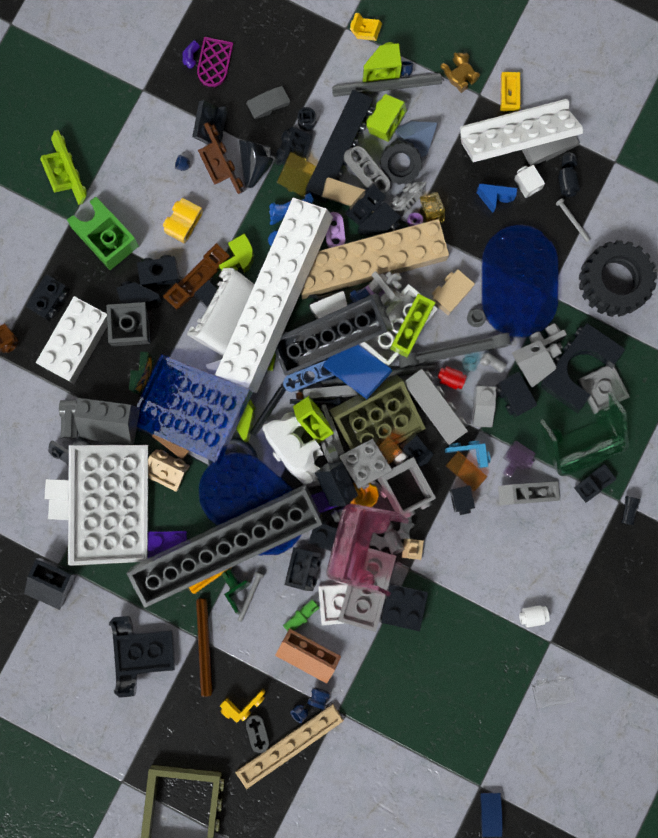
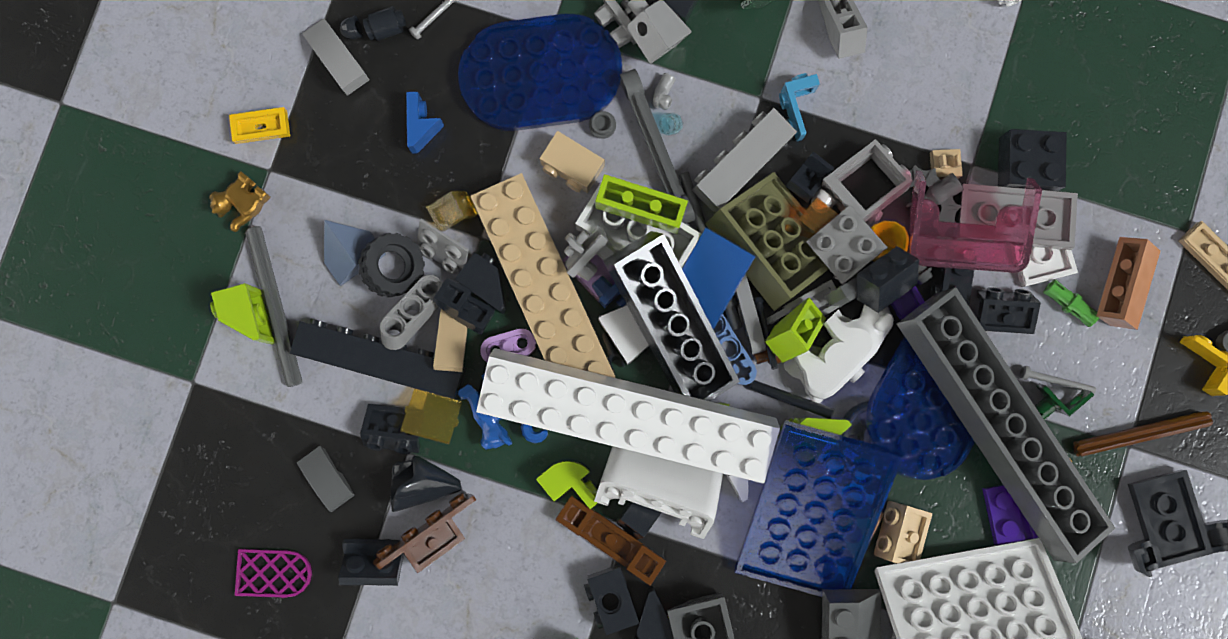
camera: 100 degrees left, 0 degrees up
(139, 378) = (779, 598): clear green slope -> none
(182, 163) = (438, 594): dark blue hinge -> none
(183, 220) = (527, 576): yellow brick -> none
(188, 54) = (266, 615): dark purple arm -> none
(299, 714) = (1206, 283): dark blue hinge -> none
(309, 122) = (348, 414): black wheel -> none
(318, 698) = (1180, 259): dark blue wheel -> none
(365, 28) = (190, 351): yellow bracket -> none
(386, 117) = (325, 298): lime brick -> none
(407, 67) = (242, 277): dark blue hinge -> none
(412, 216) = (475, 227): medium lavender hinge -> none
(451, 377) = (696, 145): red brick -> none
(462, 500) = (866, 104): black brick -> none
(466, 471) = (824, 106): clear orange tile -> none
(483, 406) = (728, 94): light grey slope -> none
(516, 395) = (705, 52): black brick -> none
(518, 457) = (793, 37): clear purple brick -> none
(519, 130) = (320, 101): white bracket -> none
(529, 180) = (390, 79): white brick -> none

